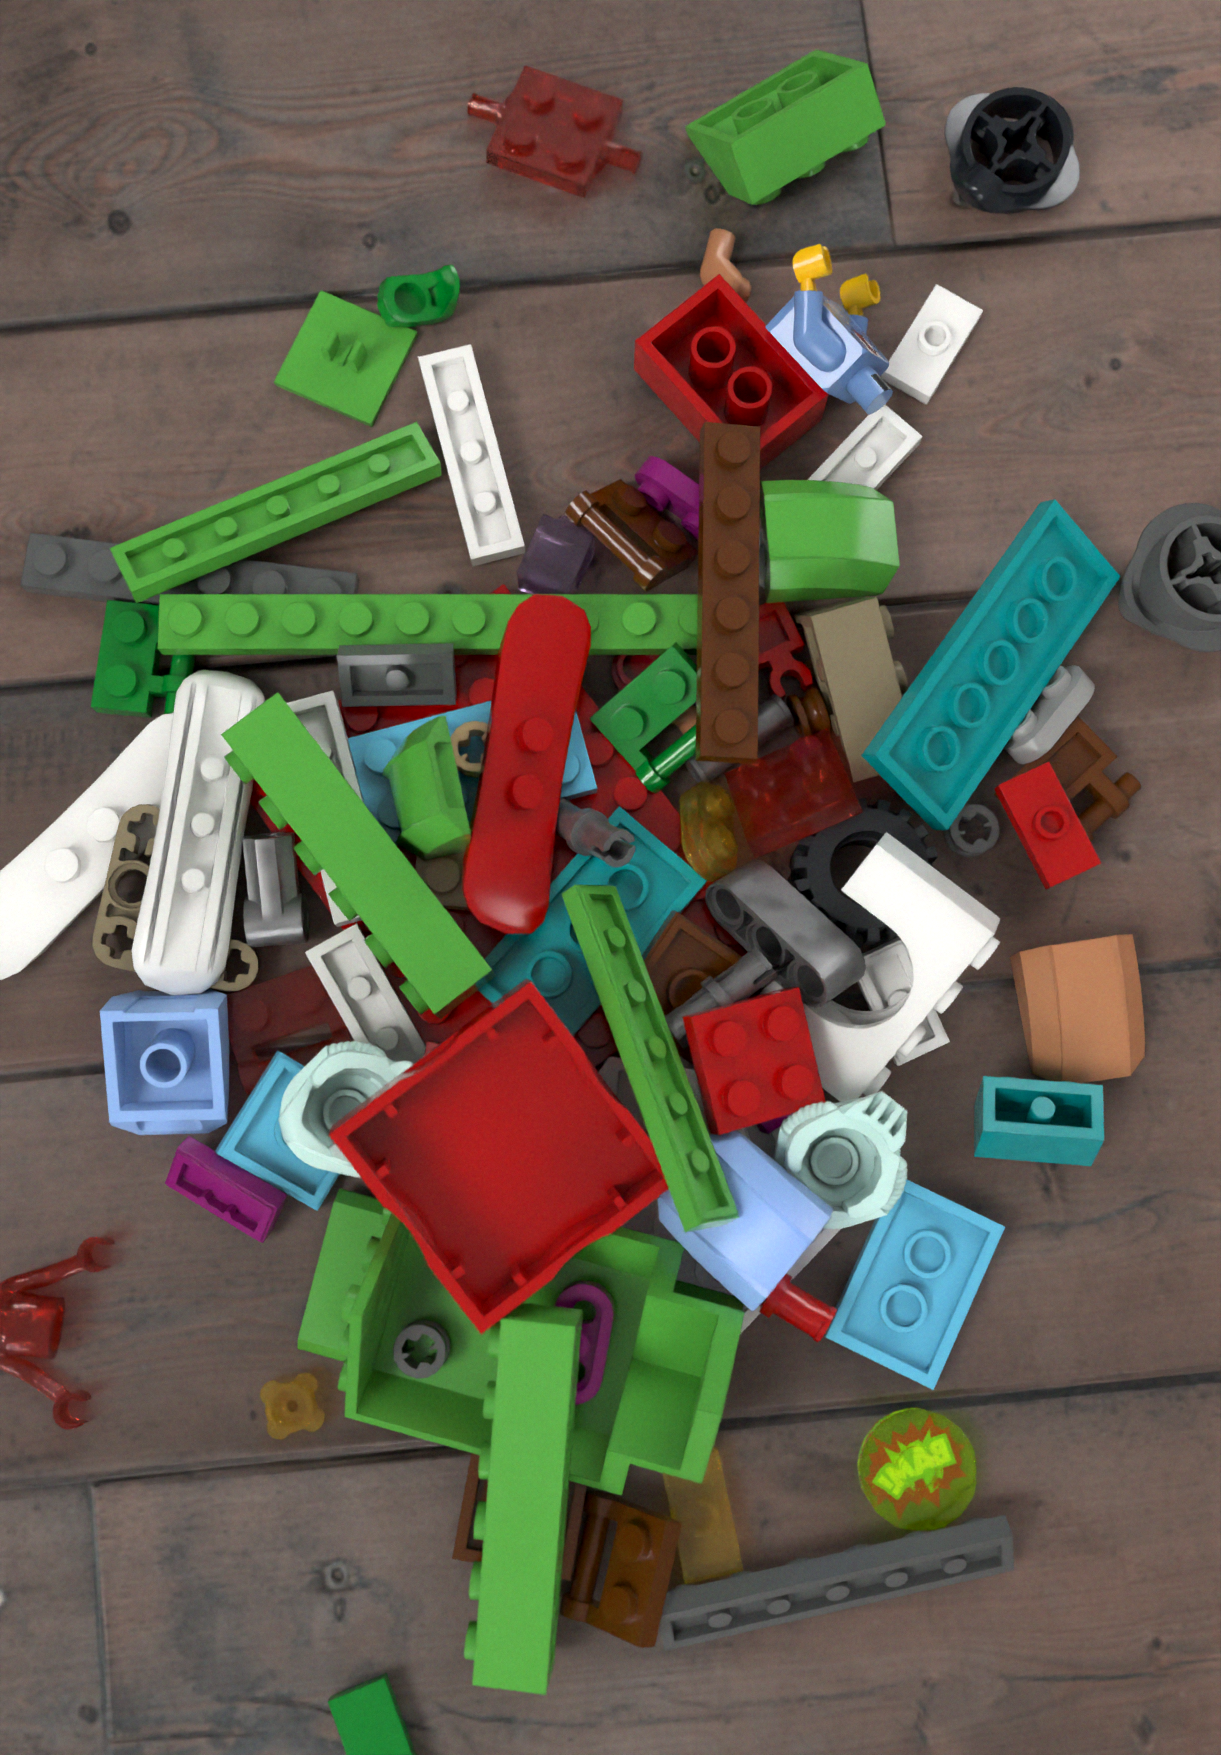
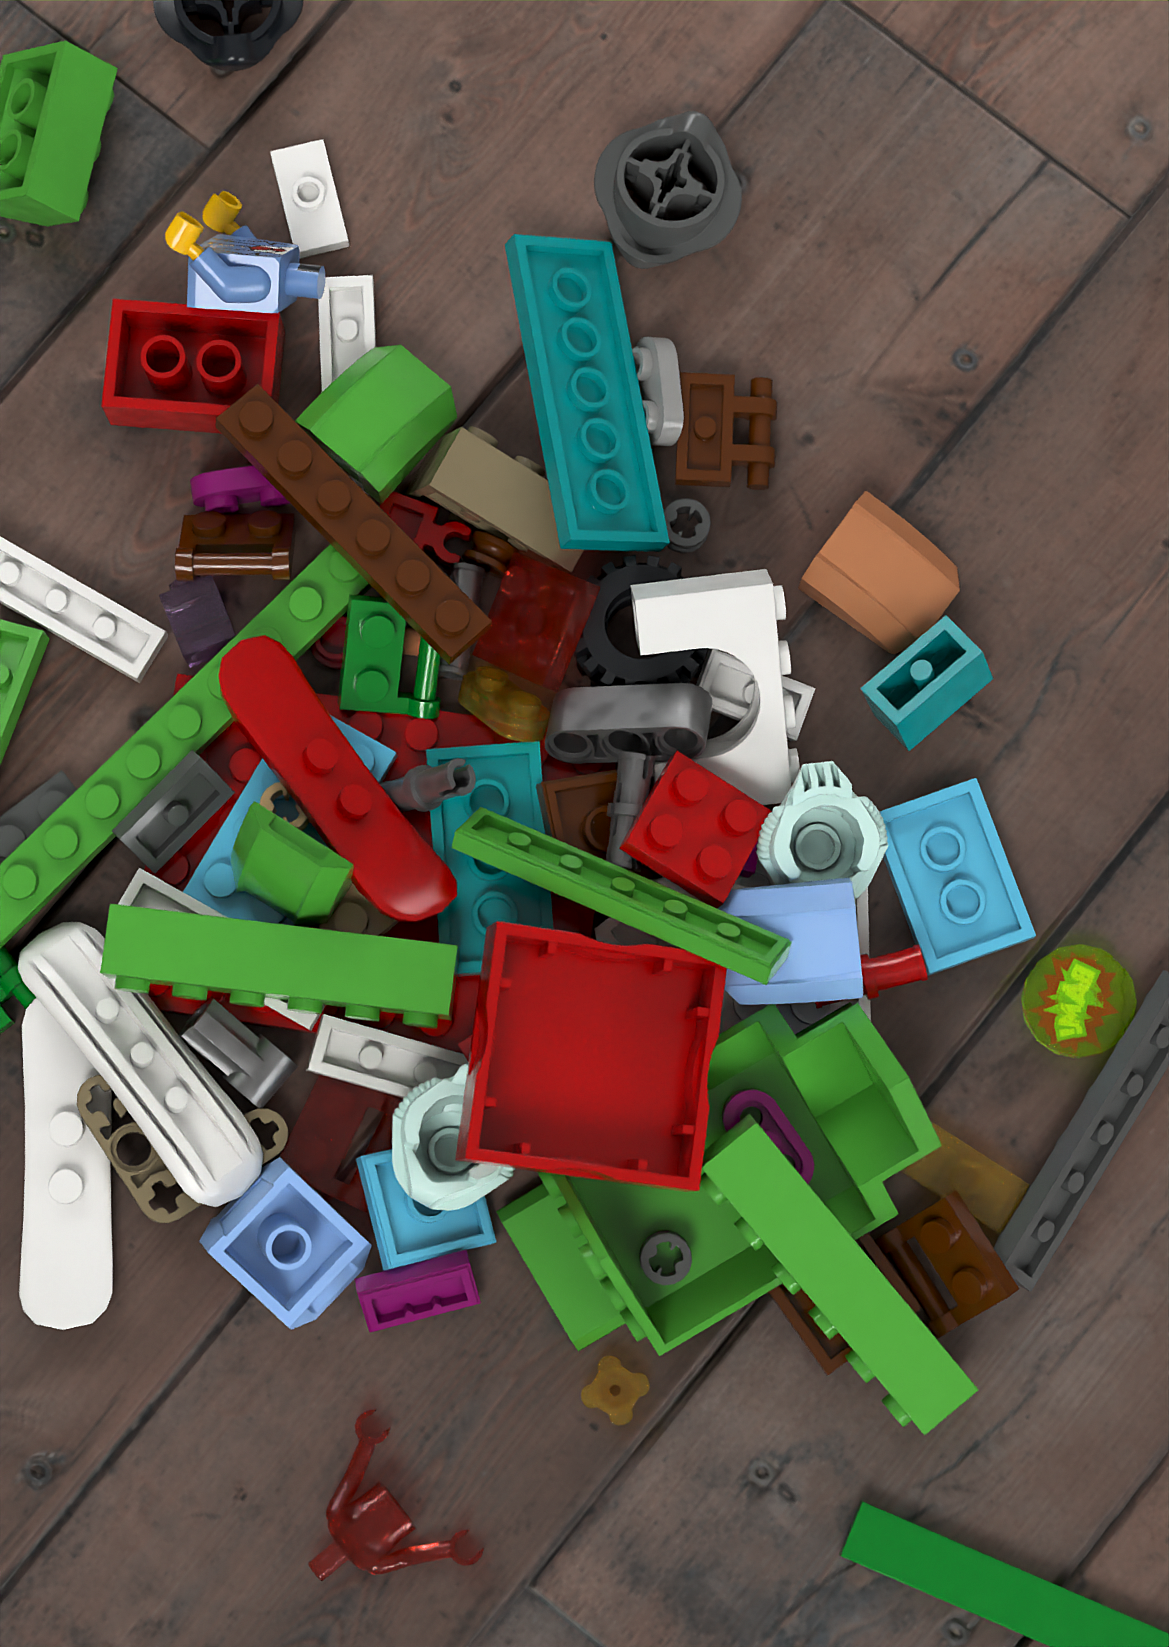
camera: 45 degrees left, 0 degrees up
(717, 261) = (99, 291): nougat arm -> none
(1047, 825) = (734, 471): red plate -> none

